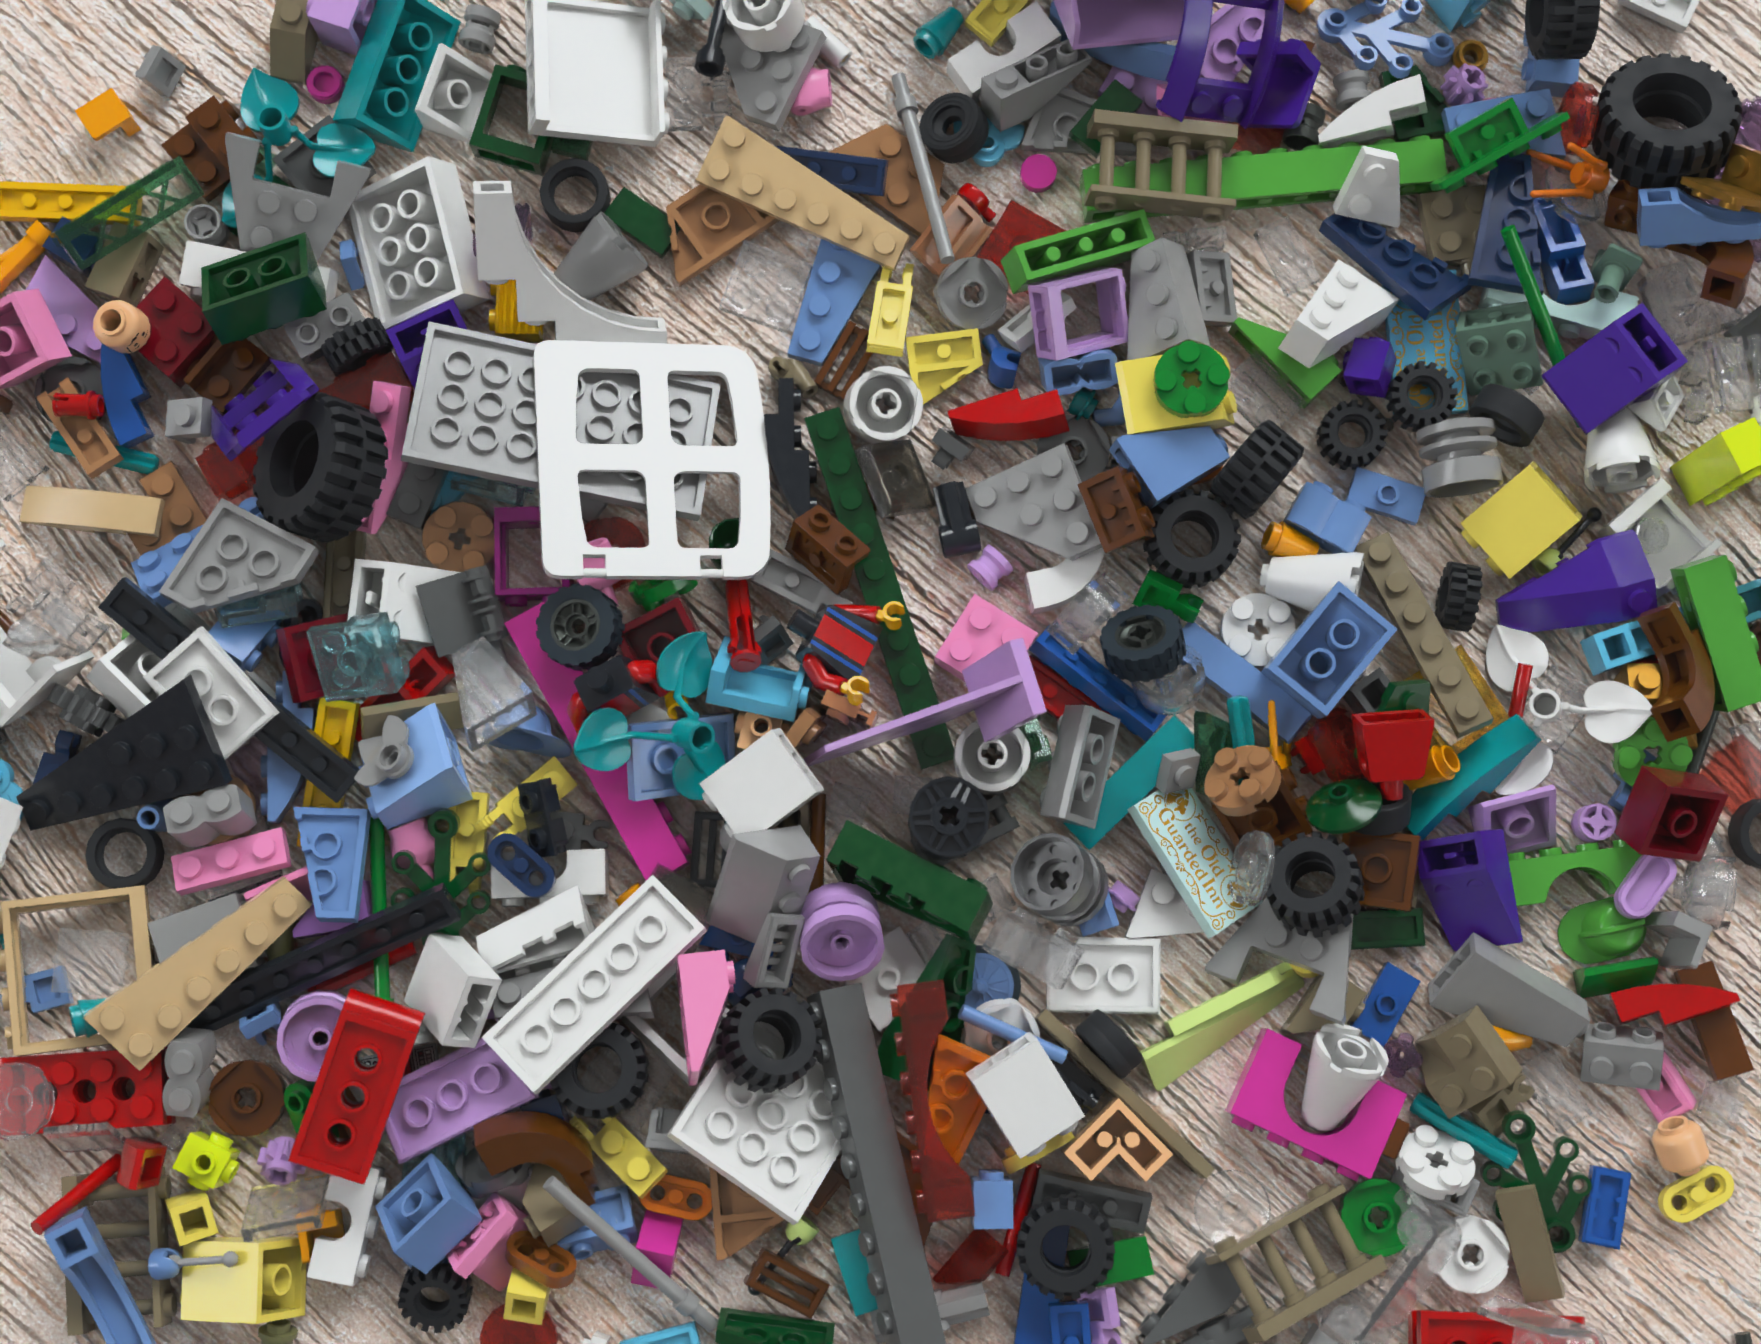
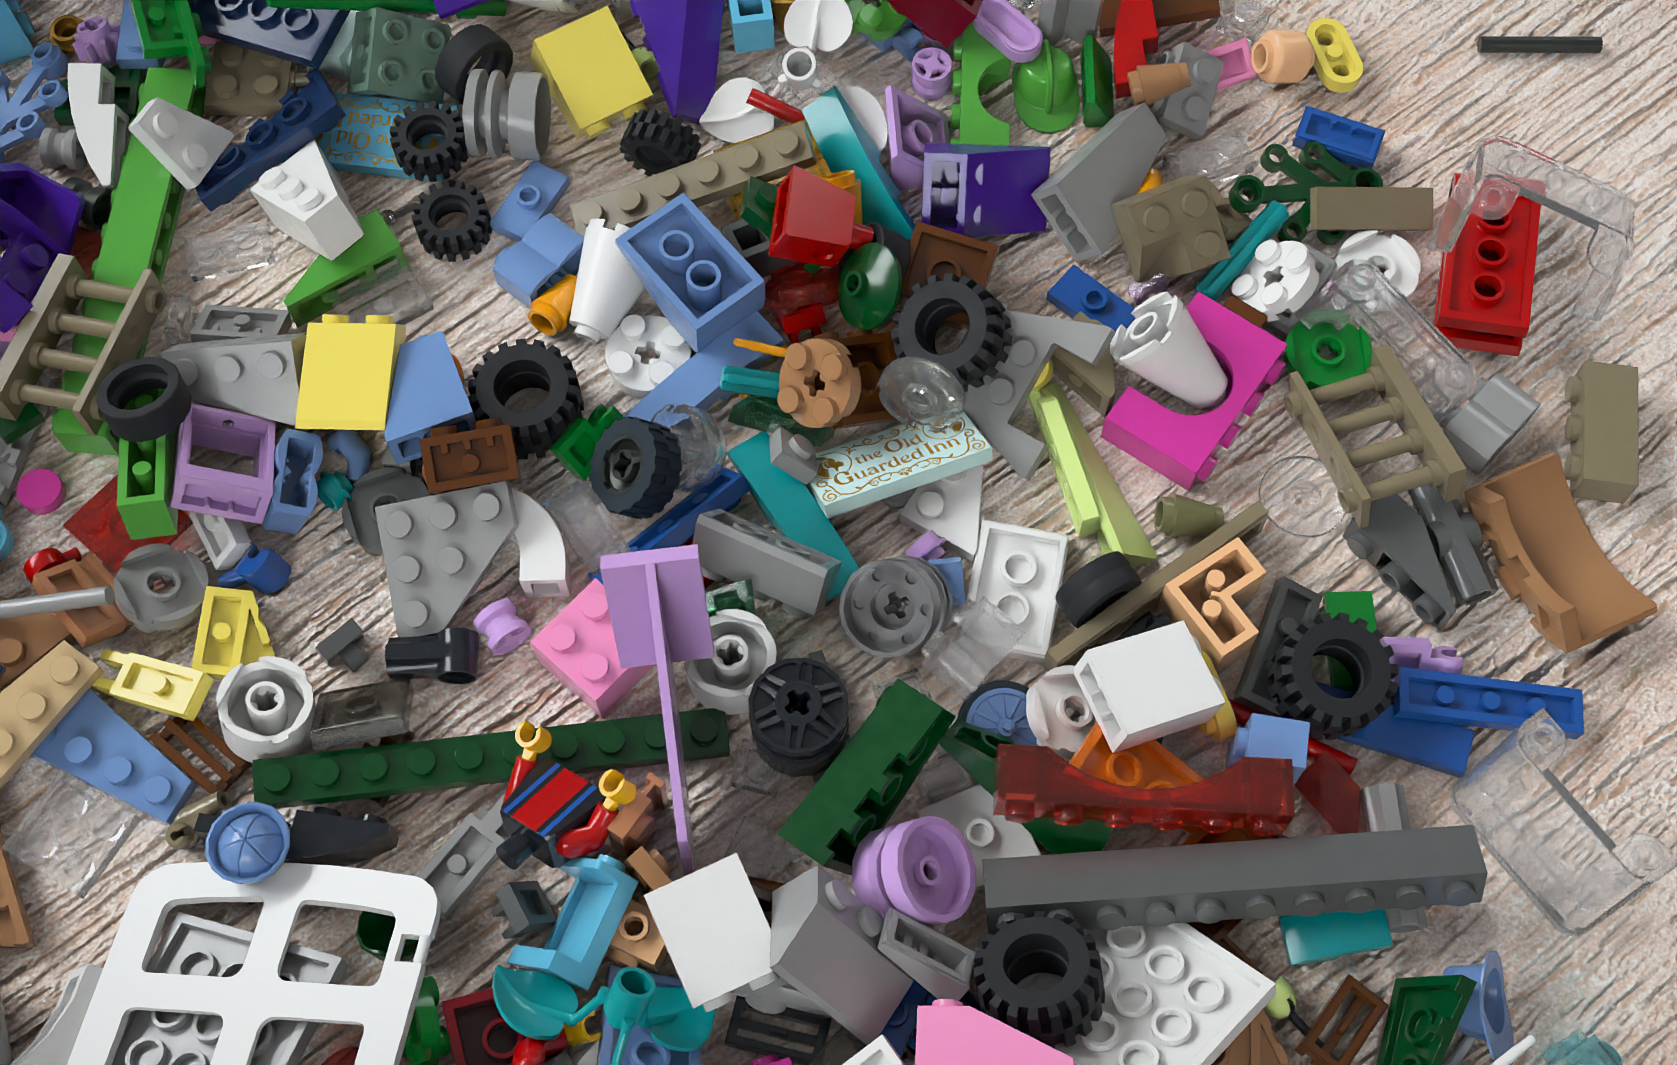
camera: 75 degrees left, 15 degrees down
(741, 627) = (488, 934): red piece -> none
(772, 422) = (248, 843): none -> medium blue hat
(826, 548) = (427, 810): reddish brown bracket -> none
(1007, 1031) = (1061, 707): medium blue bar -> none
(1010, 418) = (326, 566): red slope -> none
(1129, 221) = (134, 379): none -> black tyre
(1191, 358) = (337, 323): green plate -> none
(1195, 1111) = (1186, 517): none -> olive cone
(1257, 469) = (465, 307): black tyre -> none
(1369, 366) = (380, 185): dark purple brick -> none
(1388, 929) = (1013, 279): dark green tile -> none
(1613, 1029) = (1157, 81): none -> medium nougat cone

